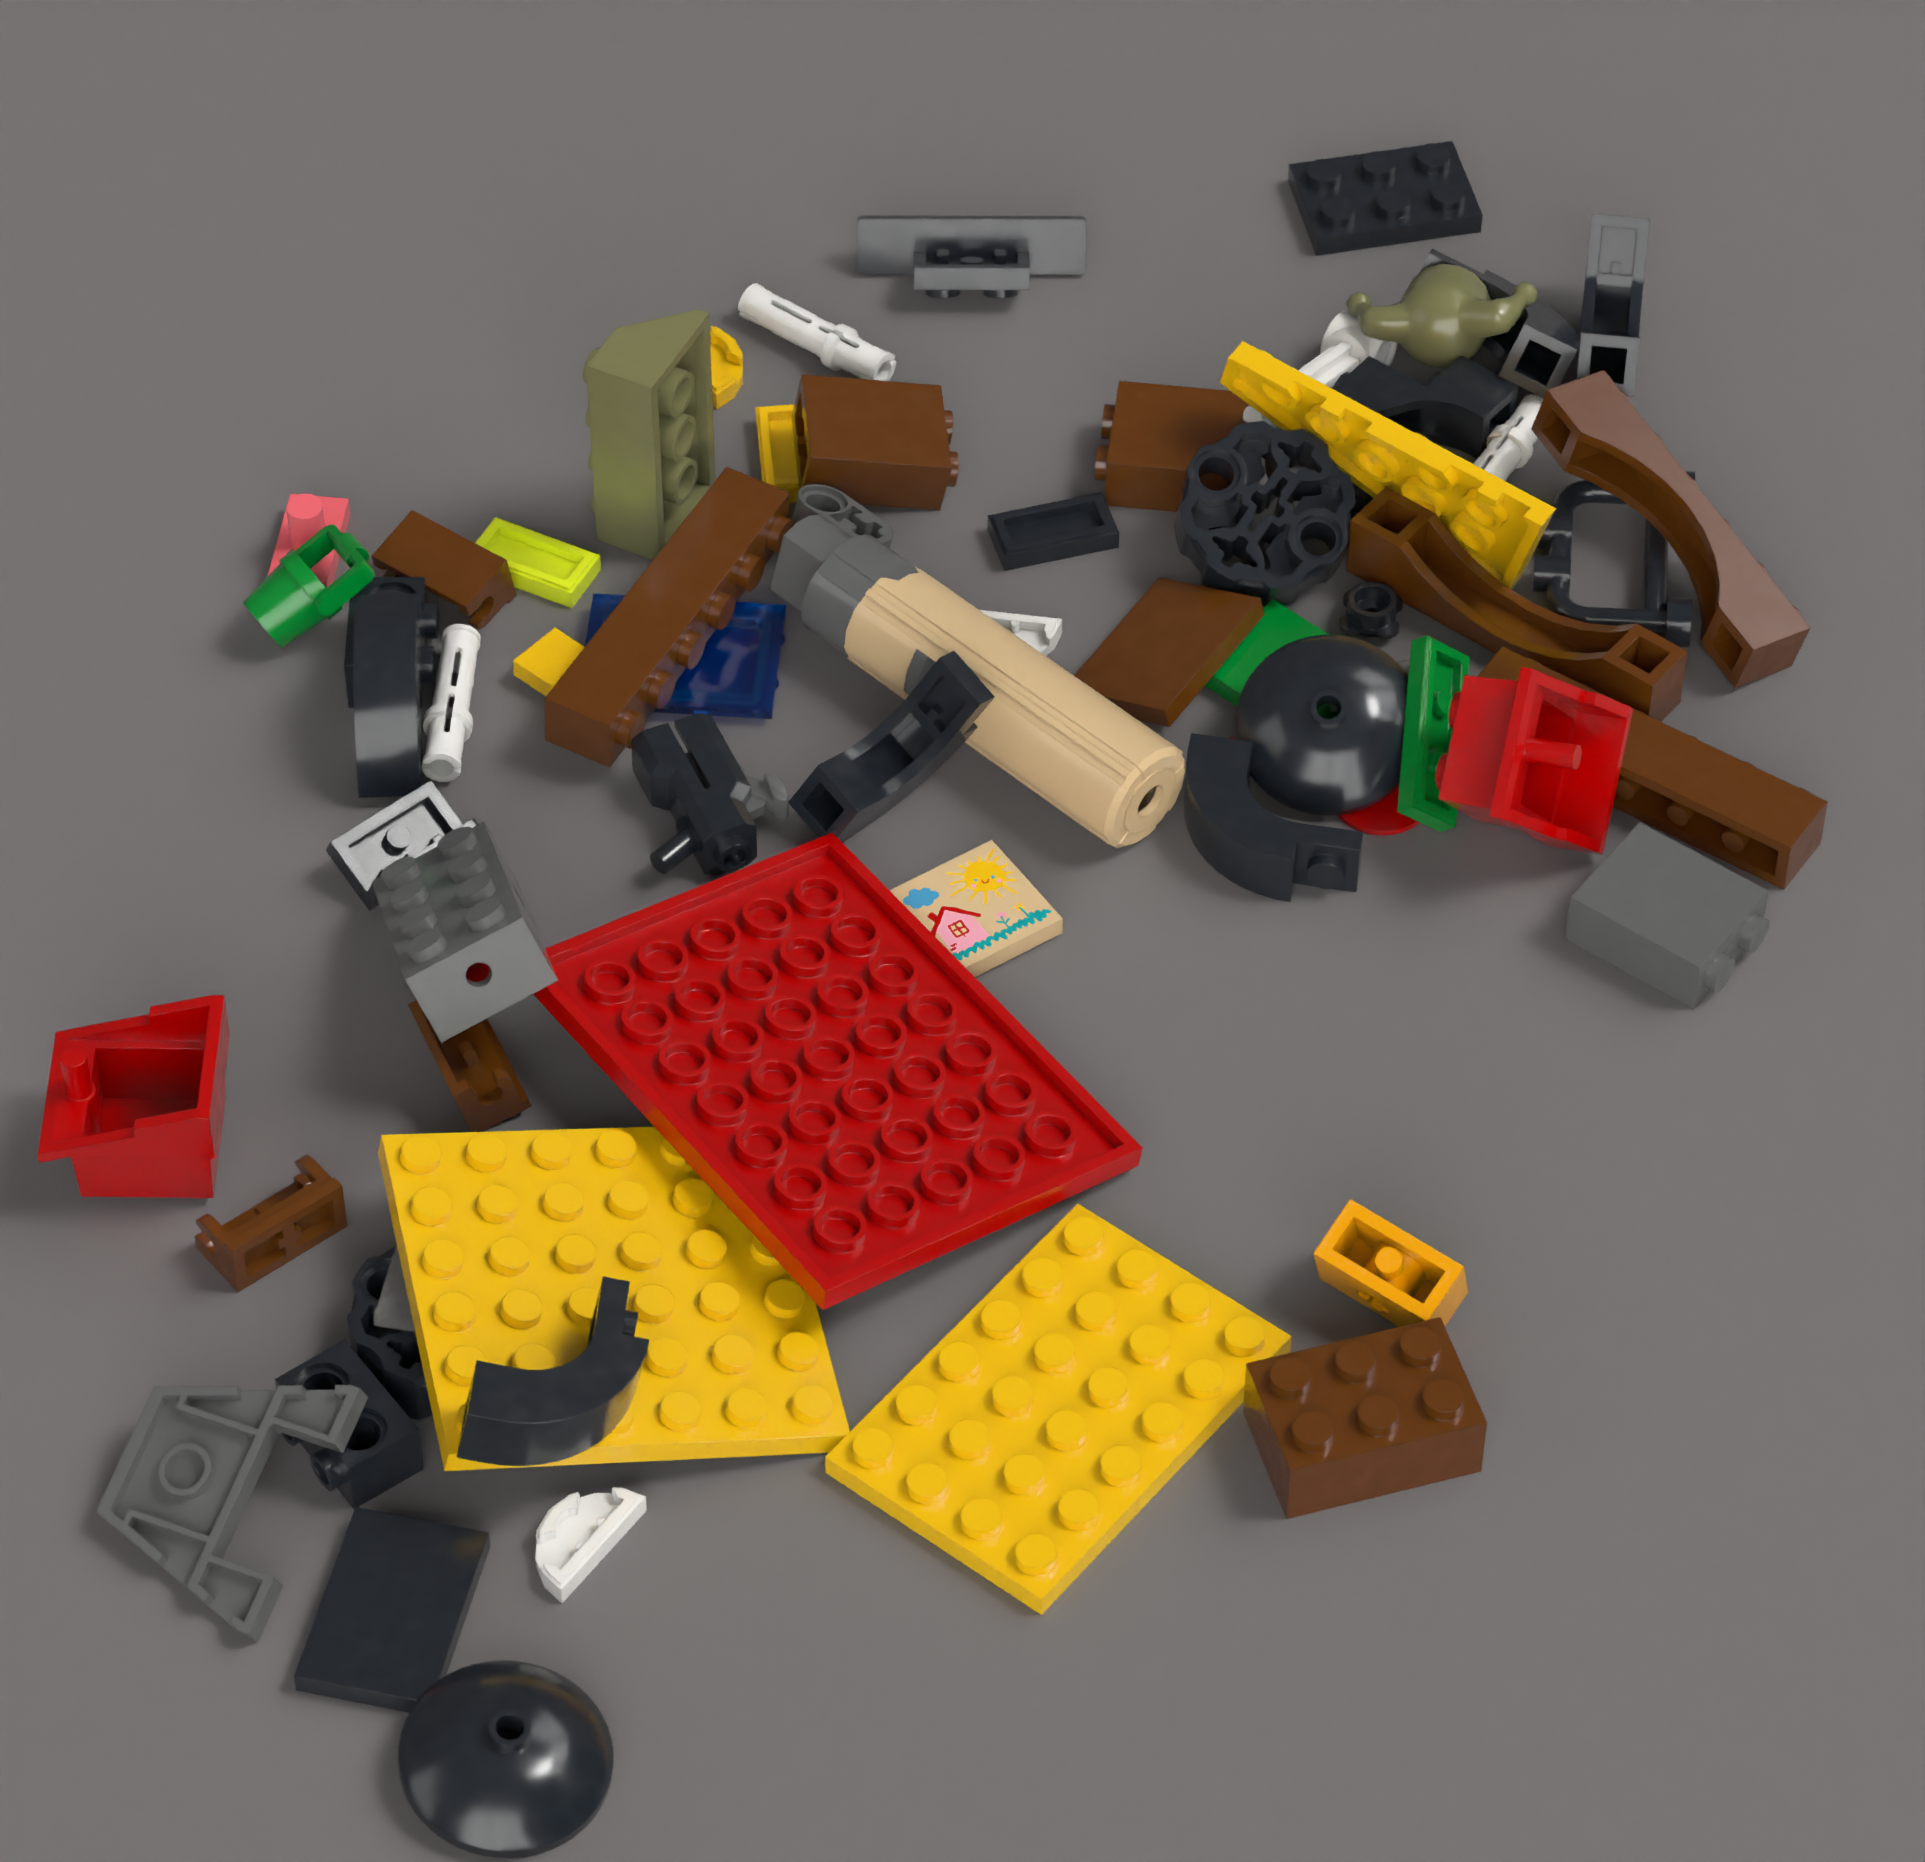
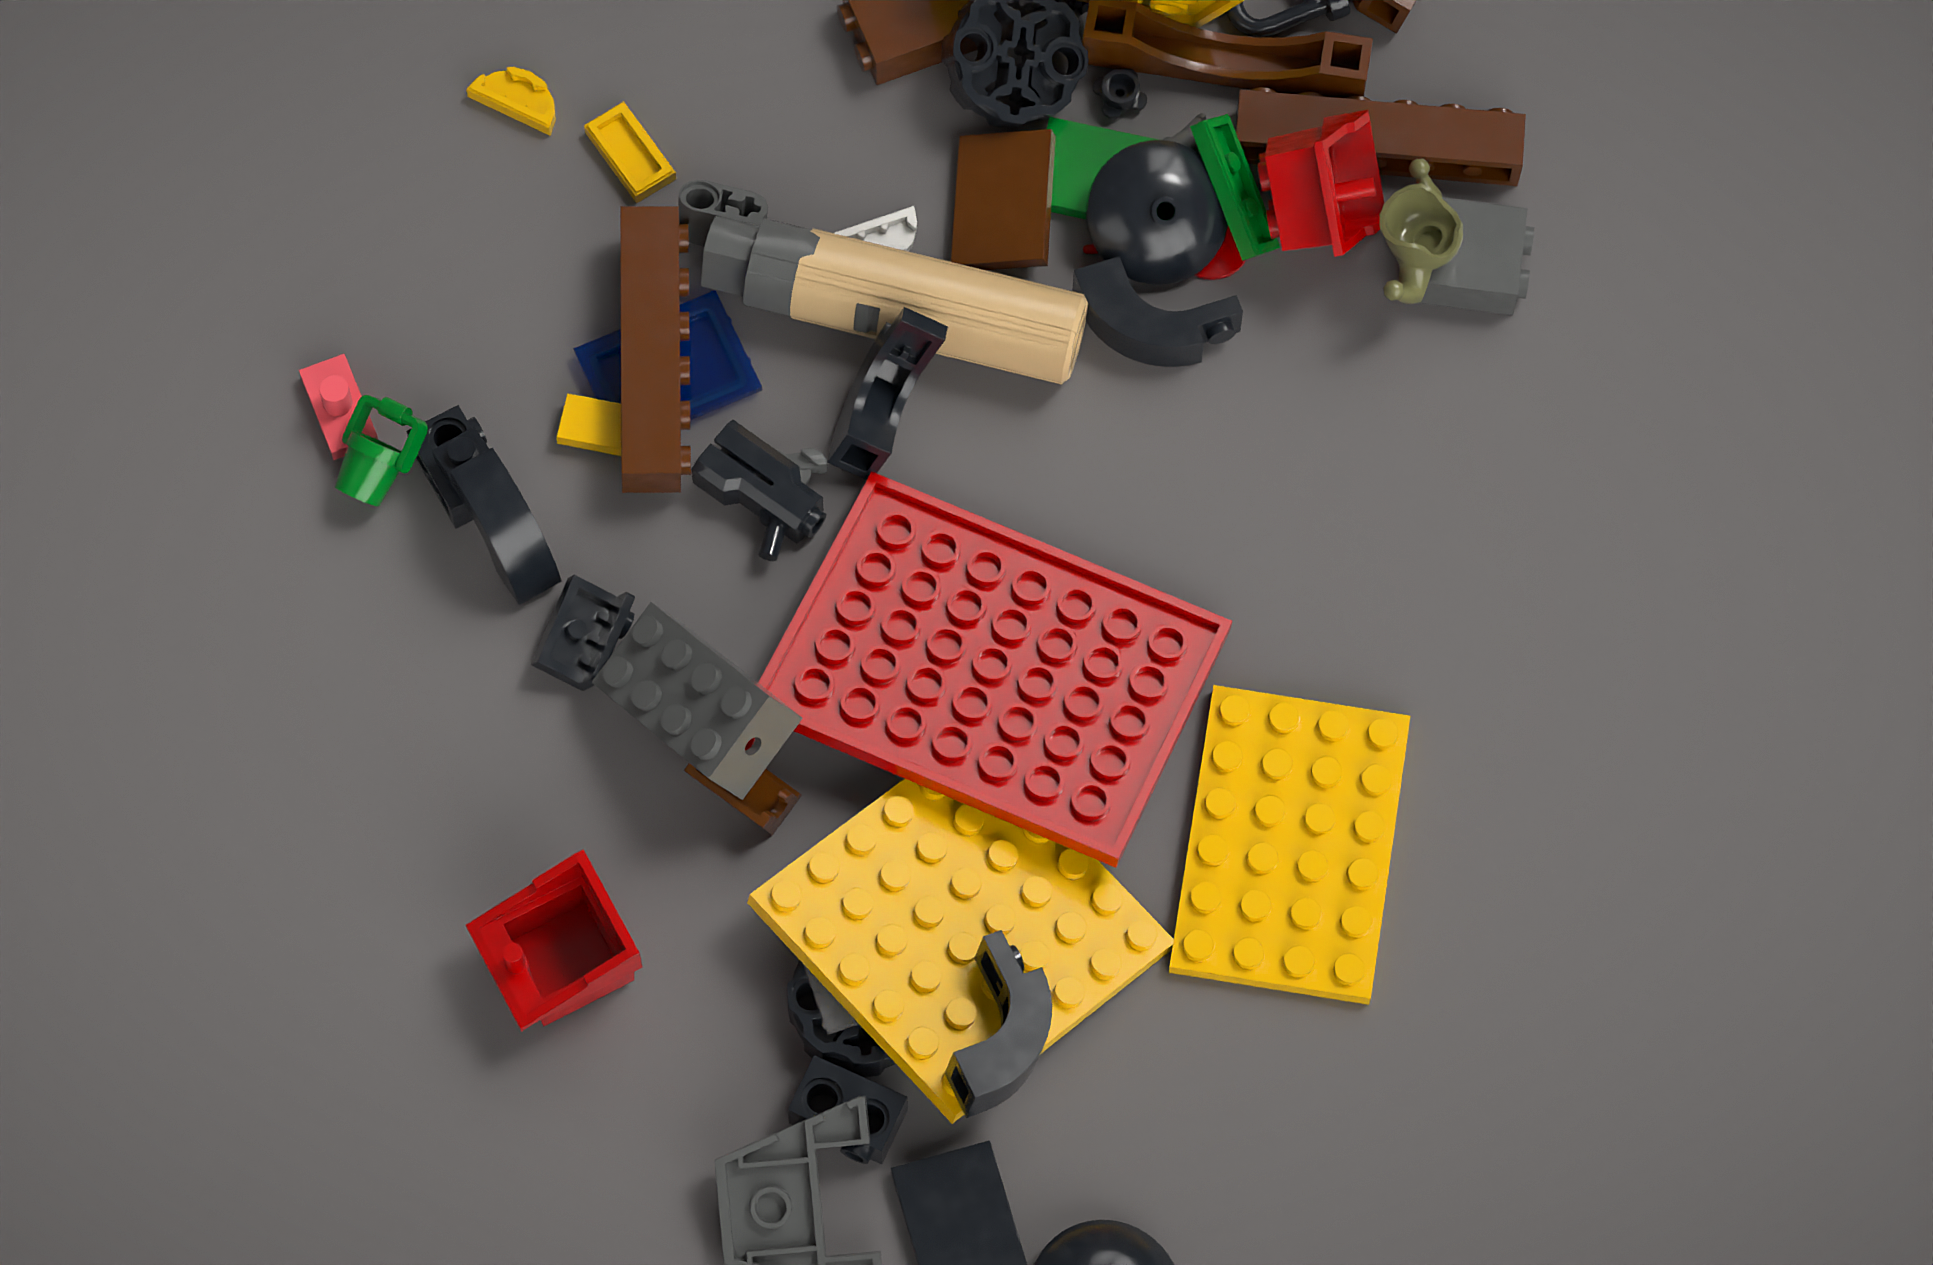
camera: 30 degrees left, 20 degrees up
(275, 1228) = (691, 981): reddish brown hinge -> none
(444, 748) = (530, 483): white pin -> none
(451, 567) = (457, 380): reddish brown hinge -> none
(542, 562) = (509, 339): neon yellow tile -> none
(580, 1534) = (1043, 1107): white tile -> none
(650, 429) = (557, 214): olive slope -> none
(835, 345) = (589, 39): white pin -> none
(875, 440) = (694, 121): reddish brown brick -> none
(981, 908) = (1003, 478): tan tile -> none
(1053, 531) = (858, 129): black tile -> none
(1364, 1417) = (1495, 756): reddish brown brick -> none
(1389, 1269) = (1454, 639): light orange brick -> none
(1613, 845) = (1420, 234): none -> olive piece

